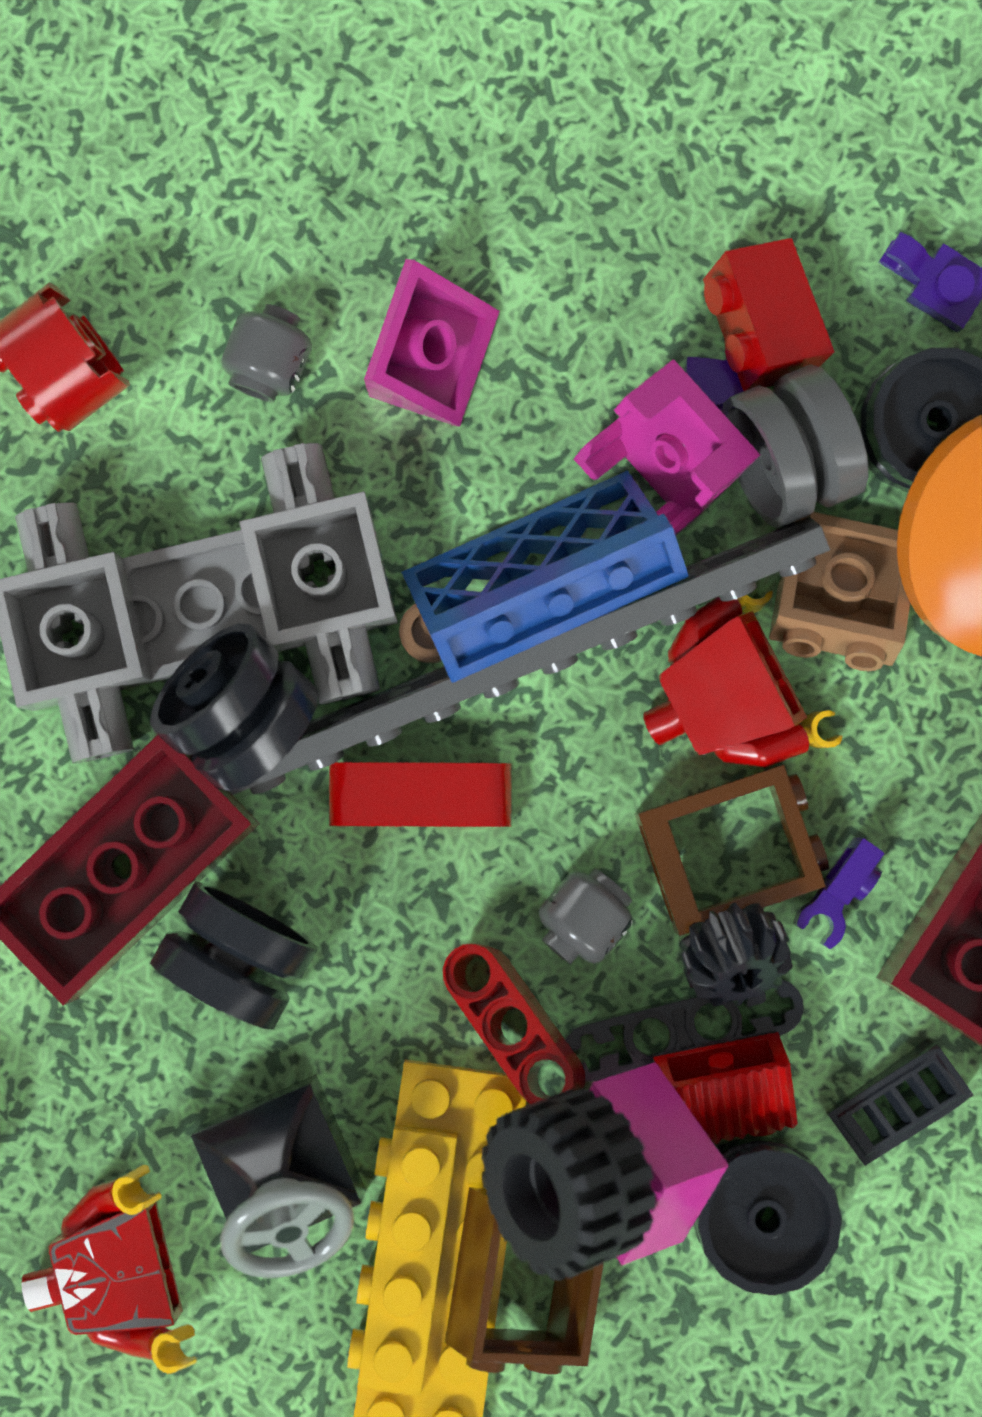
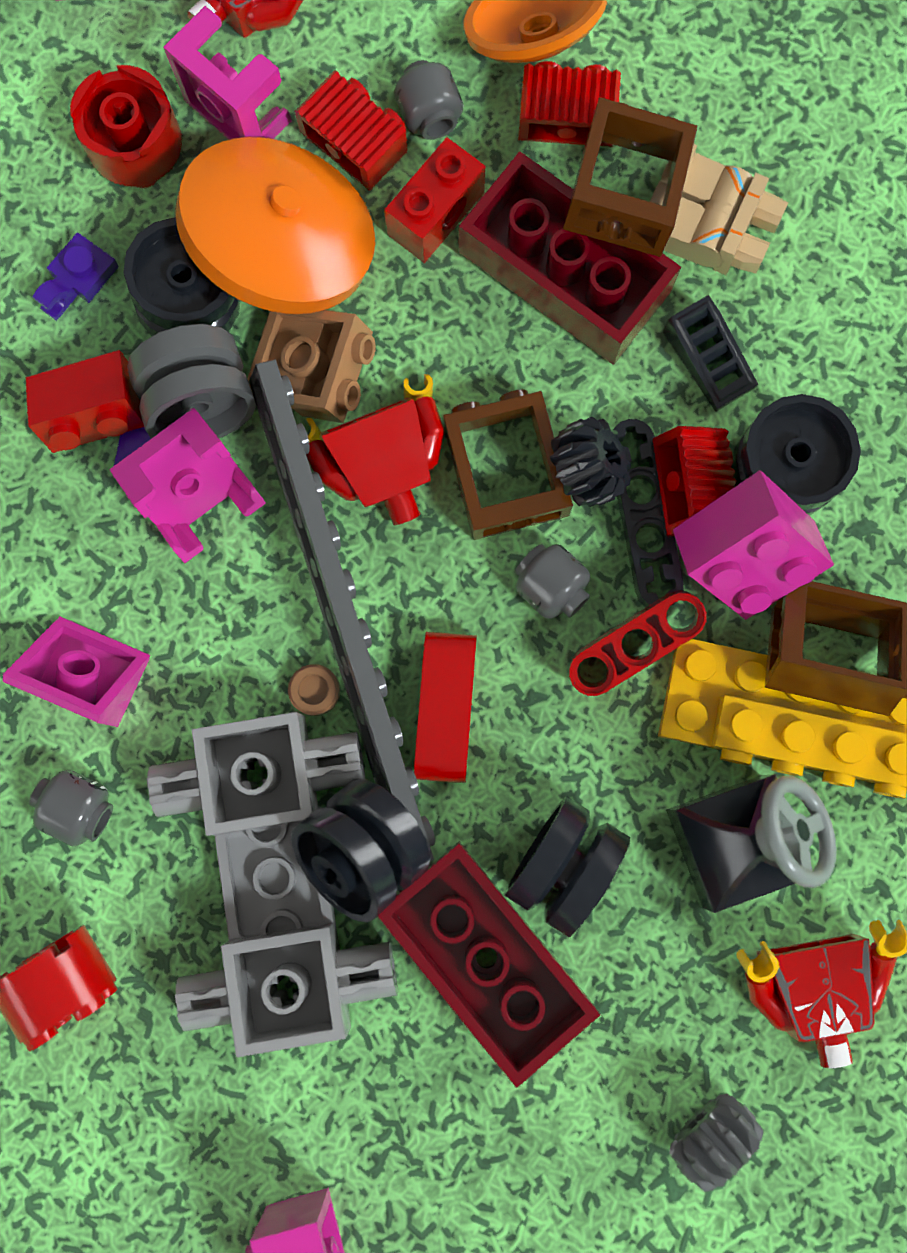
camera: 85 degrees left, 5 degrees down
(568, 589) = (294, 587): blue fence -> none
(568, 1183) = (770, 596): black tyre -> none
(850, 877) = (535, 374): dark purple plate -> none

